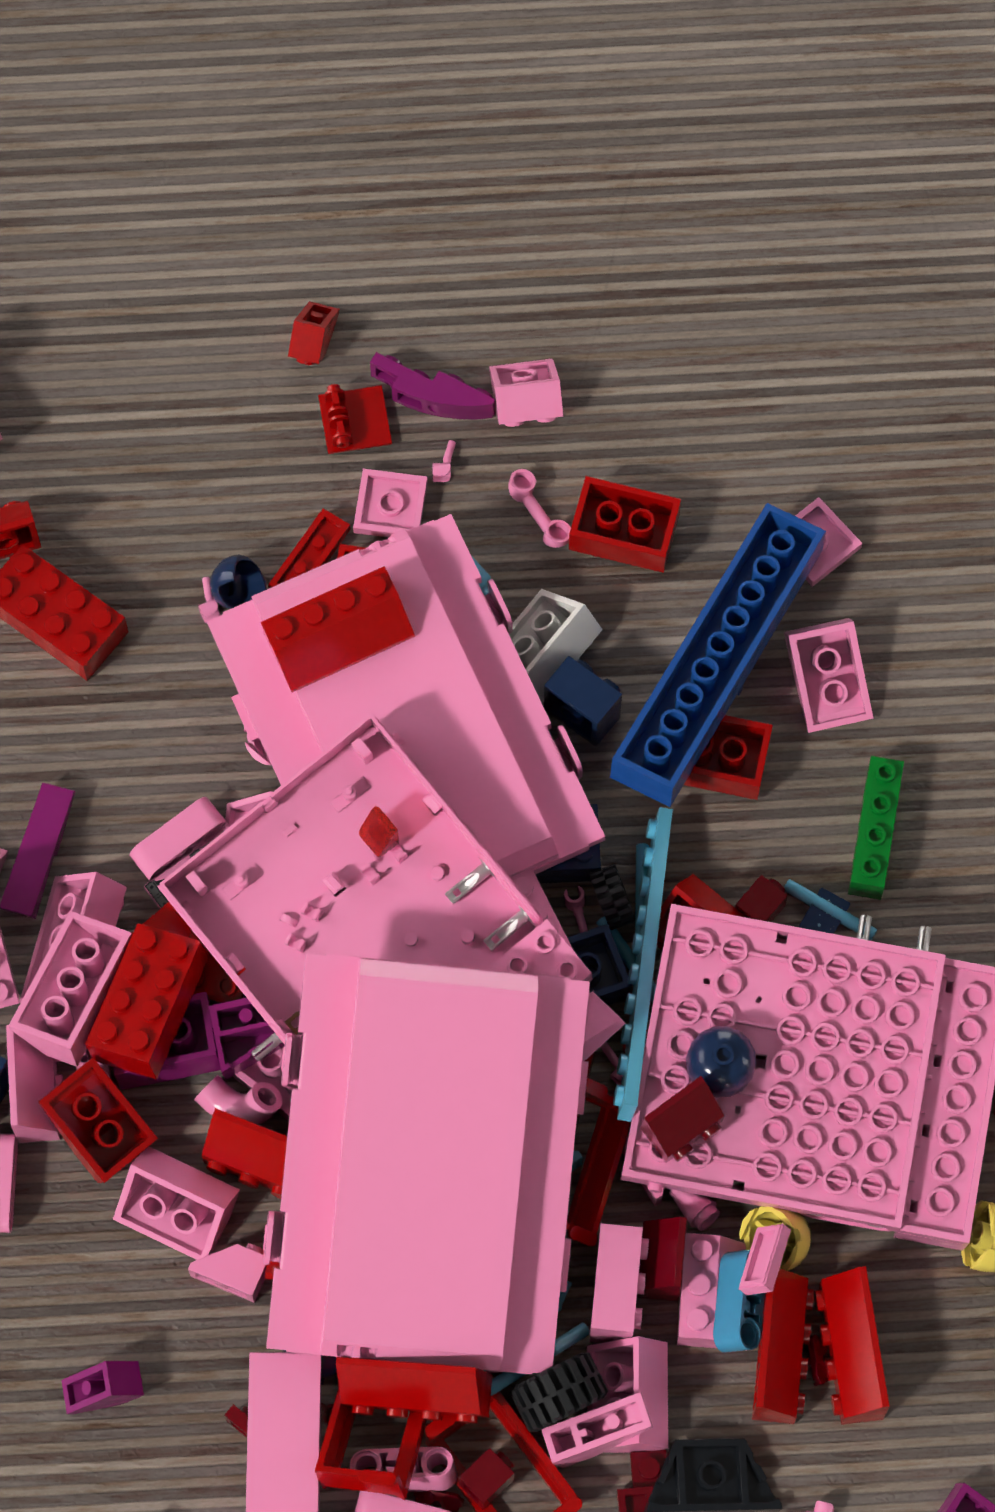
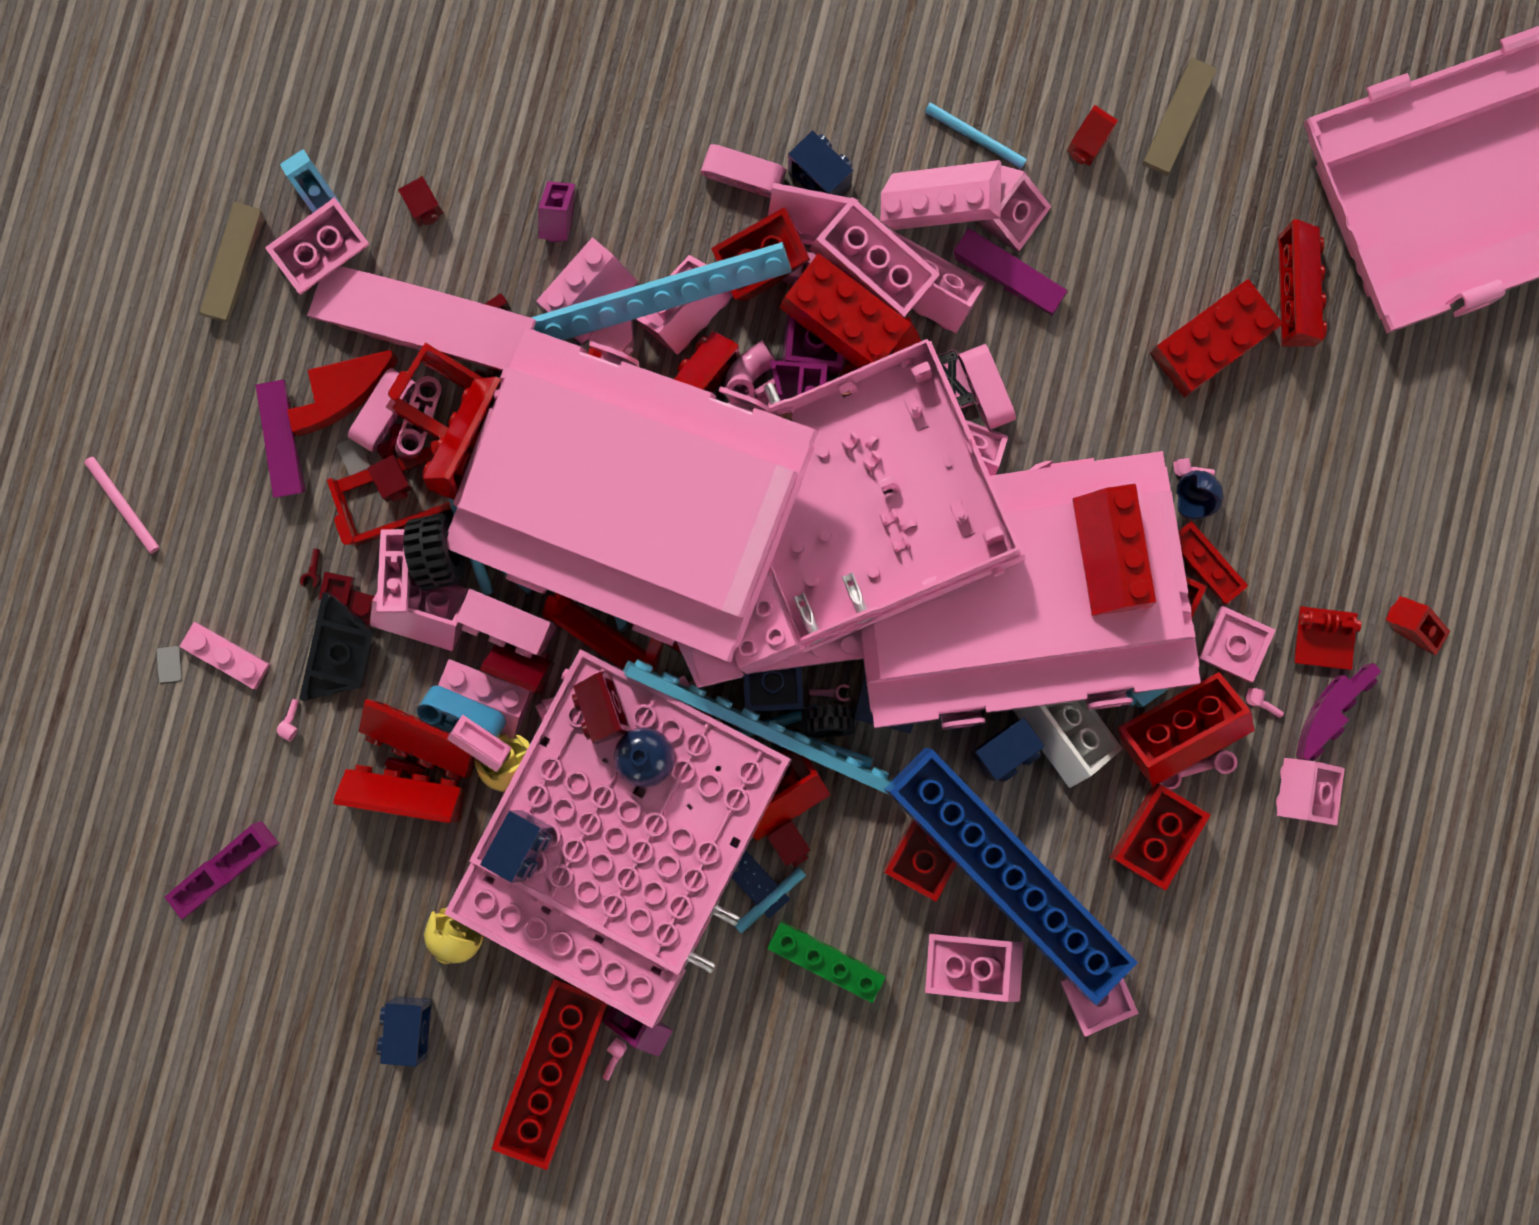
camera: 110 degrees right, 15 degrees up
(179, 1214) = (665, 293): none -> medium azure plate
(192, 1321) = (587, 277): none -> bright pink slope
(379, 832) = (916, 529): clear red slope -> none
(502, 526) = (1186, 729): none -> red brick
(866, 1163) = (517, 846): none -> dark blue brick

